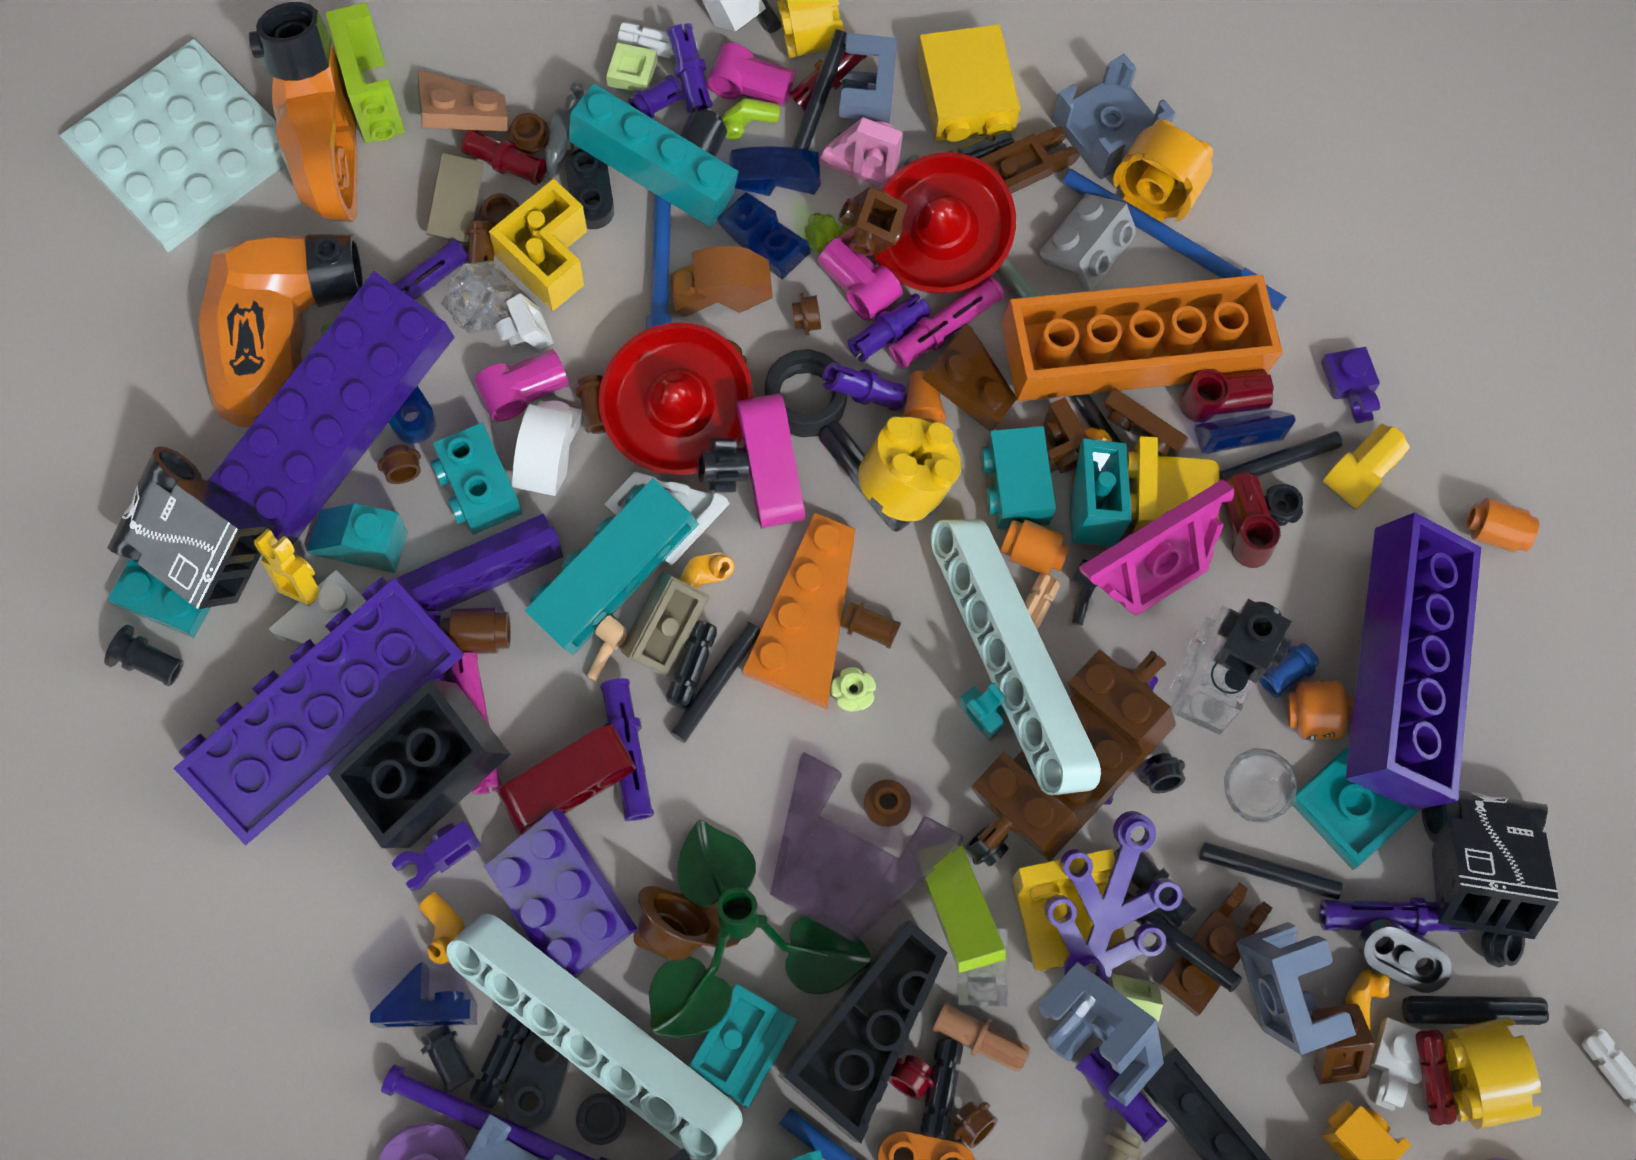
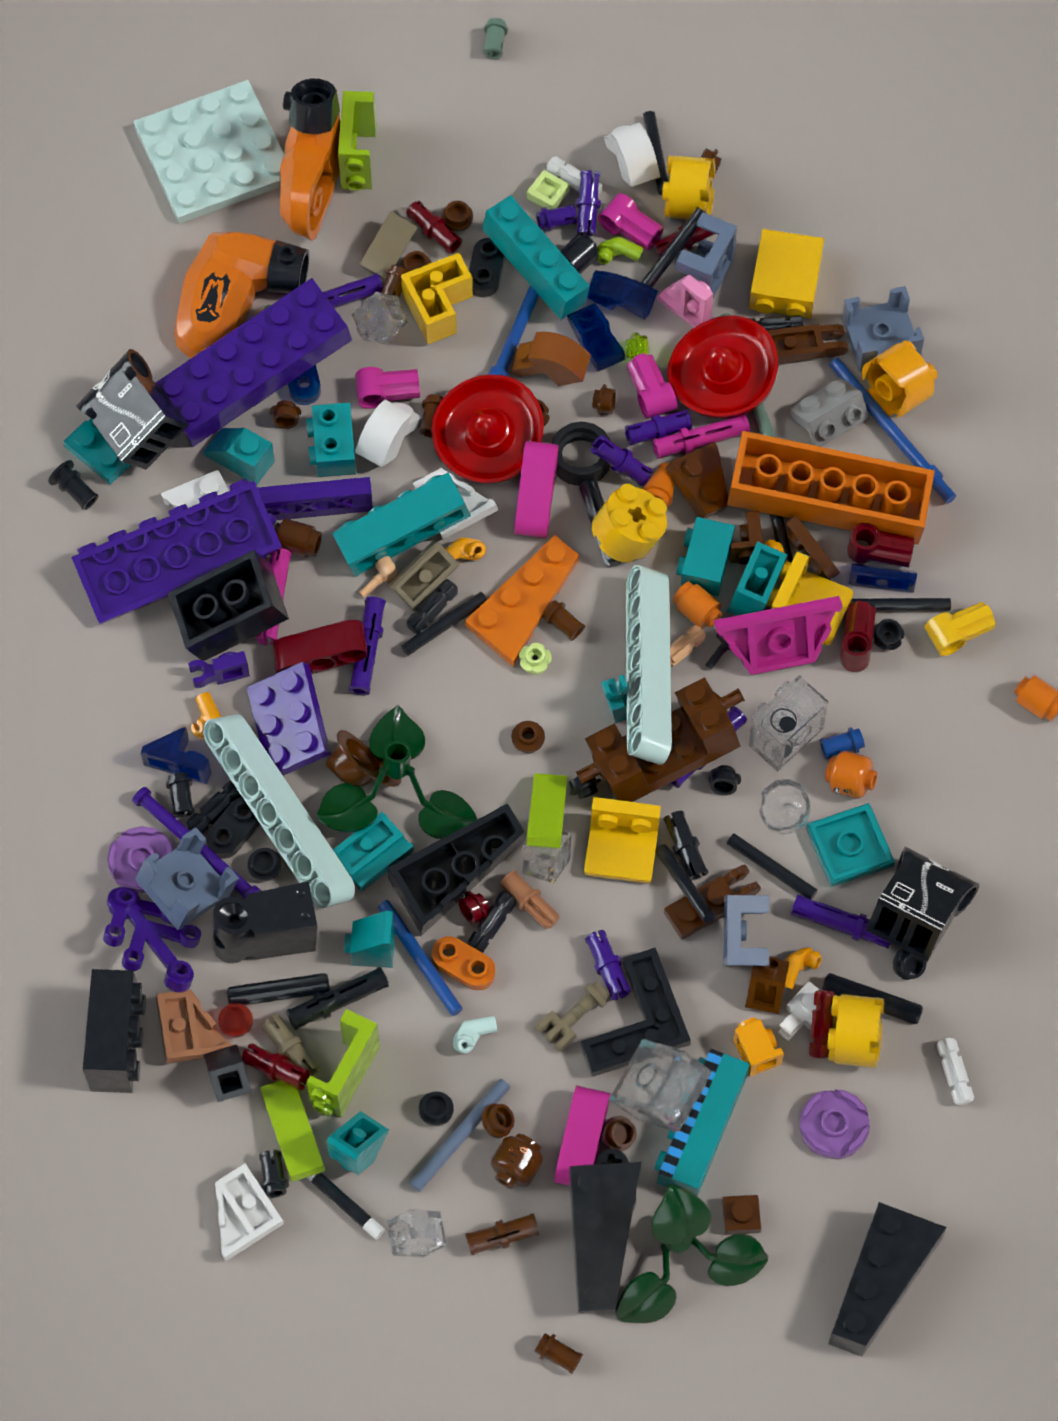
camera: 25 degrees right, 5 degrees down
(288, 572) = (186, 459): yellow plate -> none
(459, 105) = (415, 181): nougat wing -> none
(524, 324) = (404, 347): white tile -> none
(559, 130) = (475, 226): dark grey piece -> none
(722, 465) = (501, 481): black gear -> none
(836, 873) = (476, 769): clear purple wing -> none
(871, 221) = (677, 342): reddish brown brick -> none
(974, 1123) = (503, 949): reddish brown plate -> none
(1110, 911) = (642, 845): plant -> none
(1126, 1030) = (613, 910): sand blue panel -> none
(1140, 992) = (641, 910): yellowish green plate -> none
(1253, 639) = (803, 697): black brick -> none
(1354, 377) = (980, 566): dark purple plate -> none
(1401, 953) = (835, 945): plate -> none
(1414, 663) = (924, 759): dark purple brick -> none

